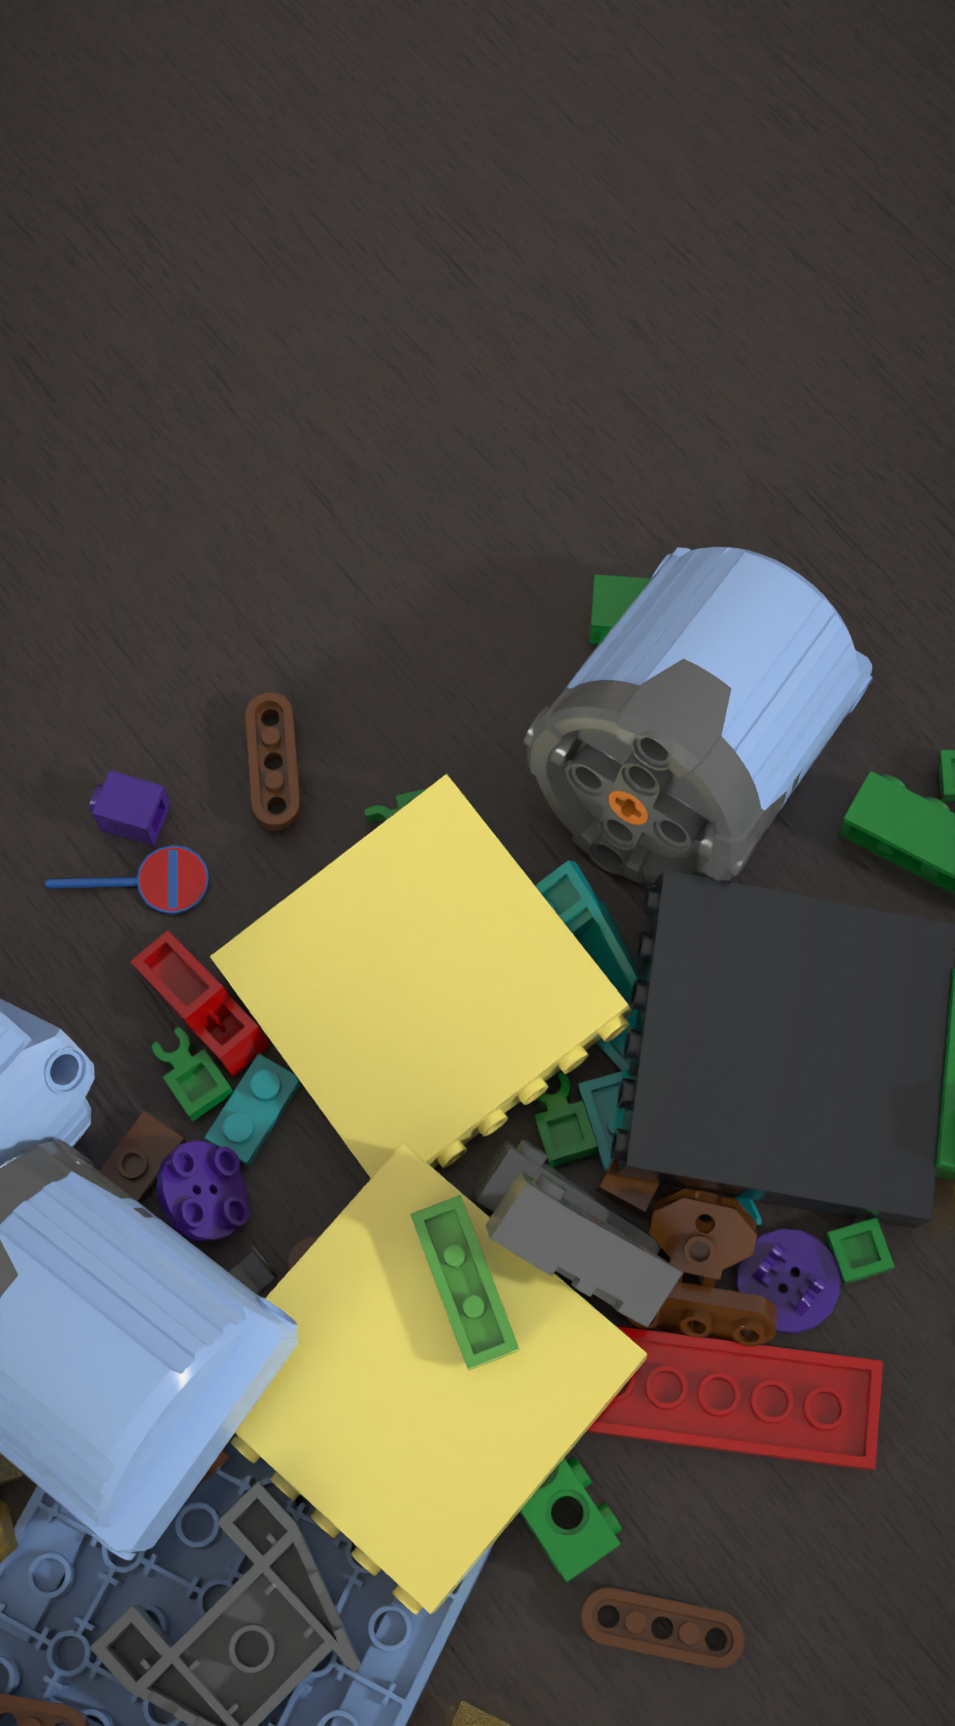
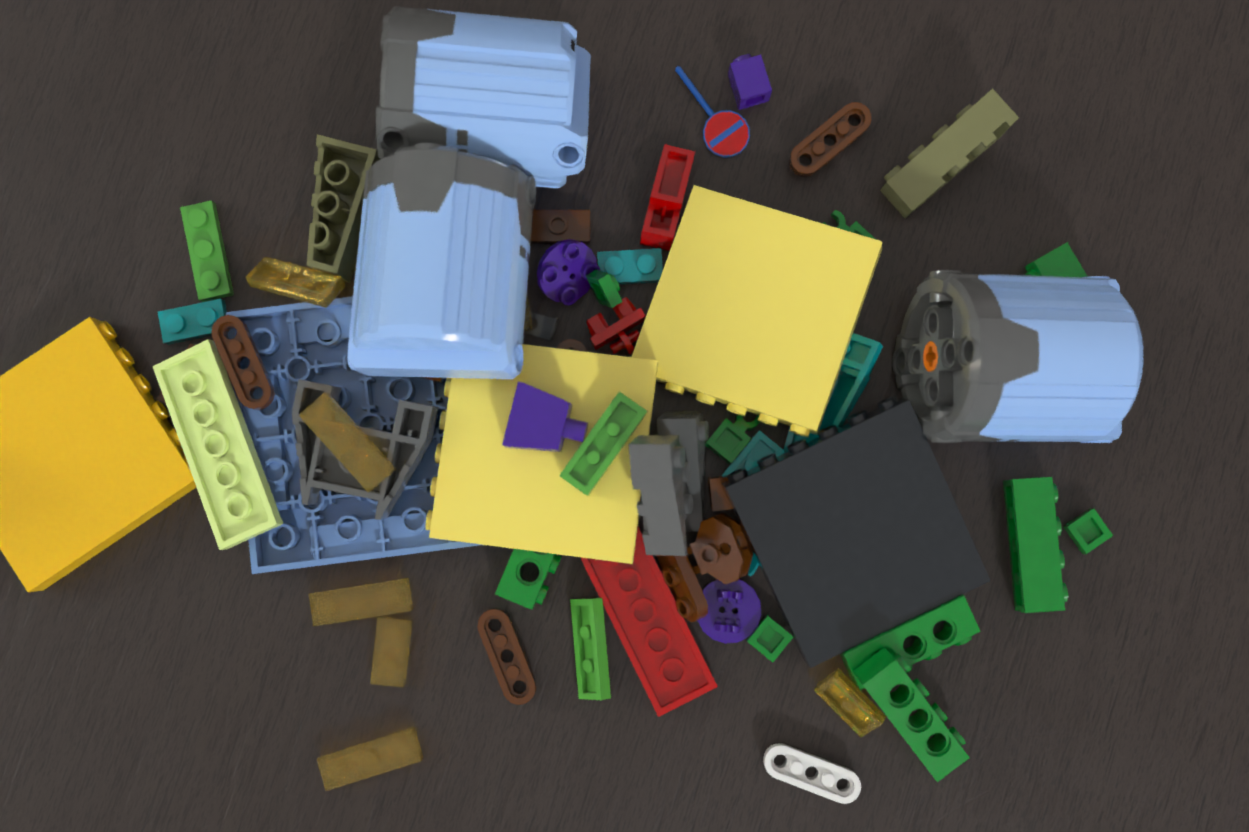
camera: 55 degrees right, 15 degrees up
(194, 1078) = (624, 224): green plate -> none
(223, 1635) = (347, 442): none -> clear yellow plate
(259, 1156) = (605, 288): none -> green plate
(318, 1153) = (628, 317): none -> red hips
(379, 1344) = (540, 421): none -> dark purple torso
(392, 638) = (949, 153): none -> olive wedge
(725, 1501) = (590, 648): none -> bright green plate

